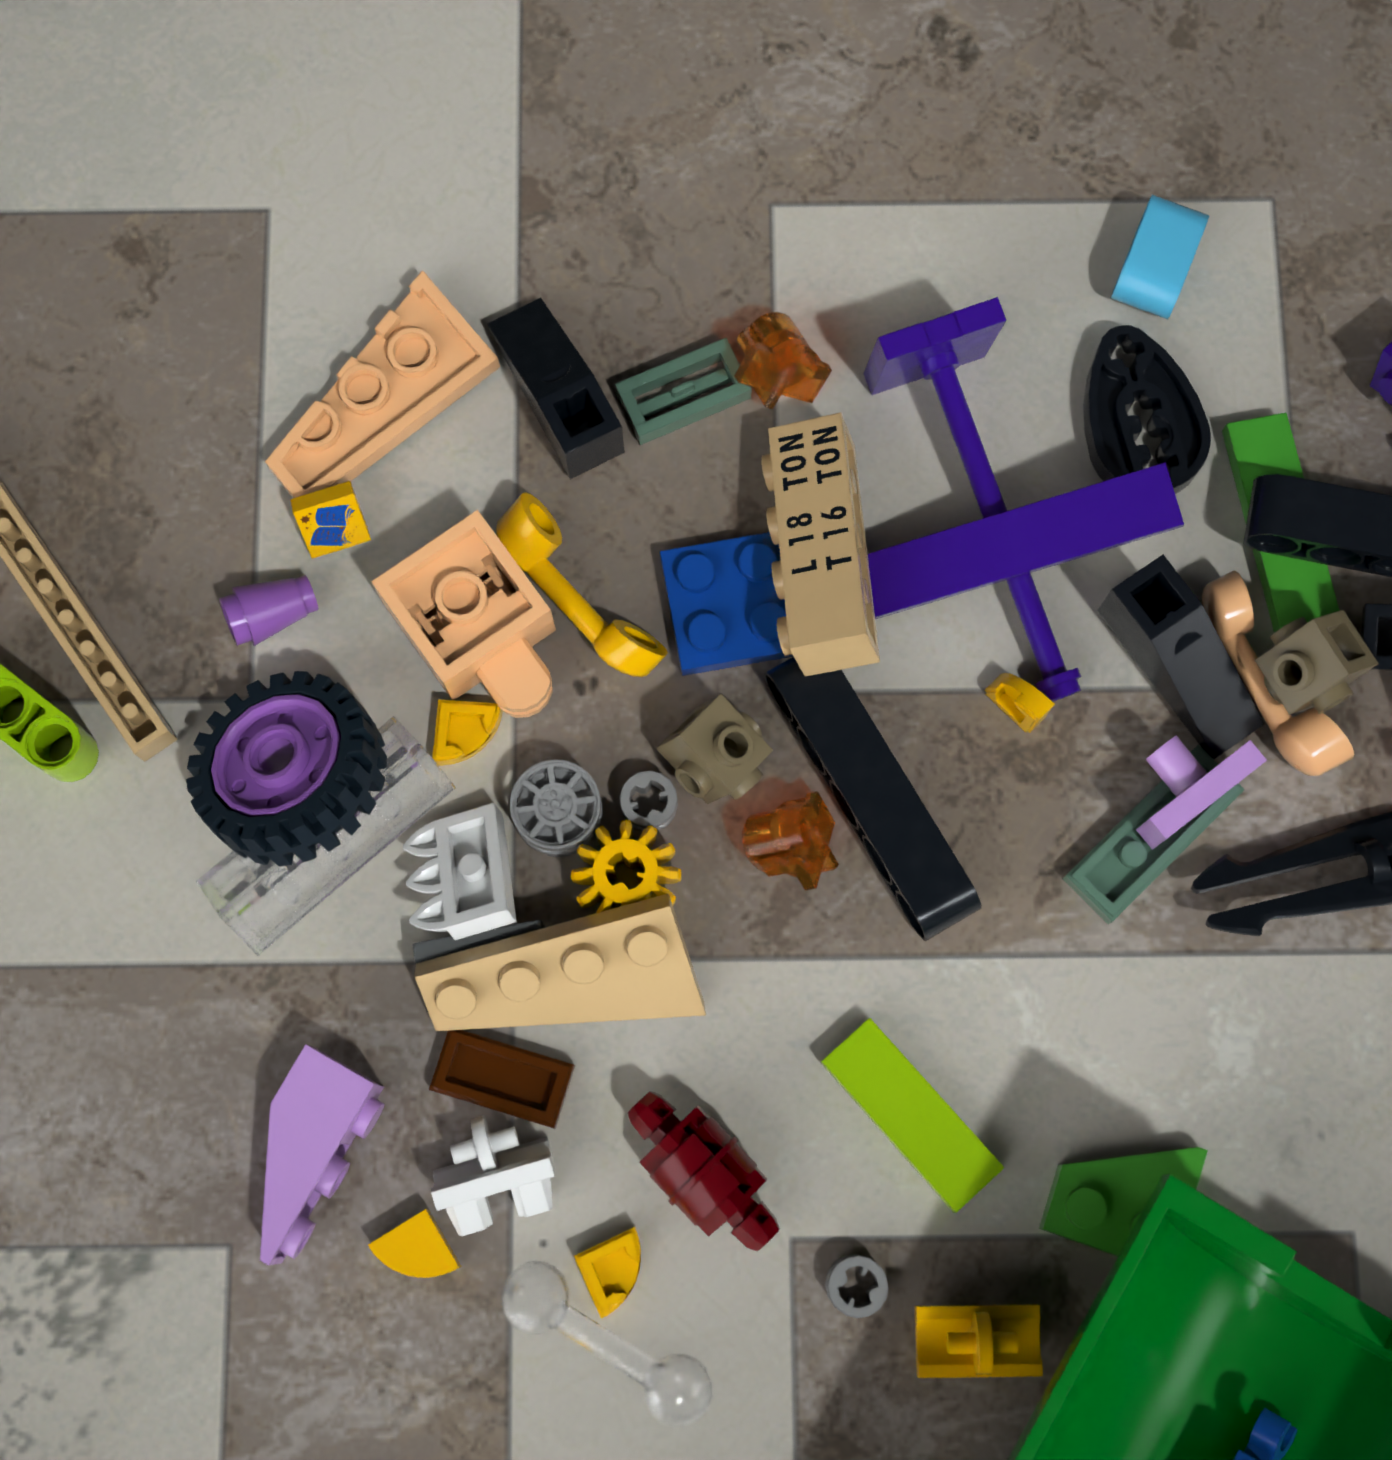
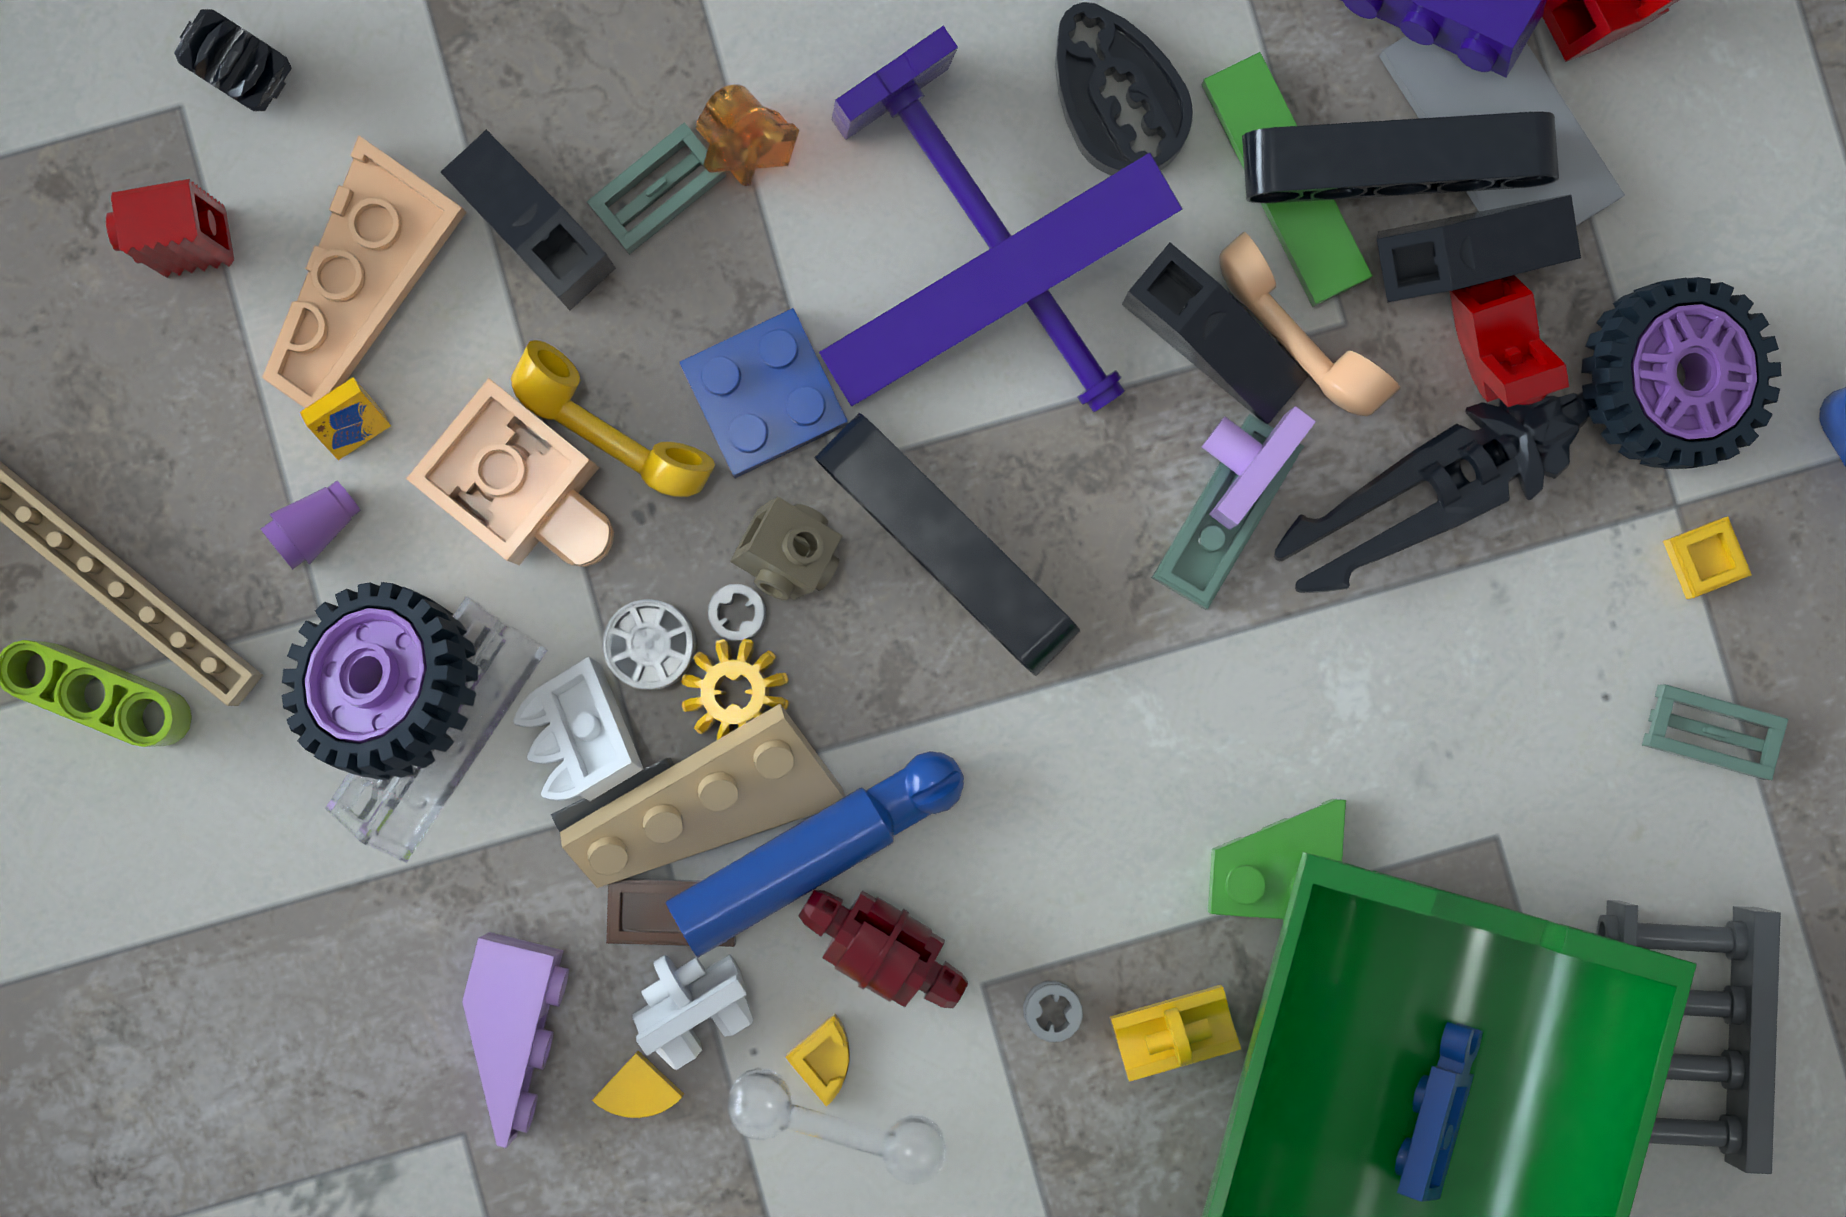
camera: 20 degrees left, 10 degrees up
(224, 302) = (170, 227): none -> red brick
(328, 174) = (232, 60): none -> black gear
(463, 729) = (537, 591): yellow tile -> none
(661, 1052) = (814, 851): none -> blue piece
(792, 840) = (884, 615): clear orange piece -> none
(820, 545) = (834, 318): tan brick -> none
(912, 1115) = (1064, 841): lime tile -> none
(1019, 700) = (1066, 417): yellow tile -> none
(1315, 662) = (1341, 309): dark tan brick -> none

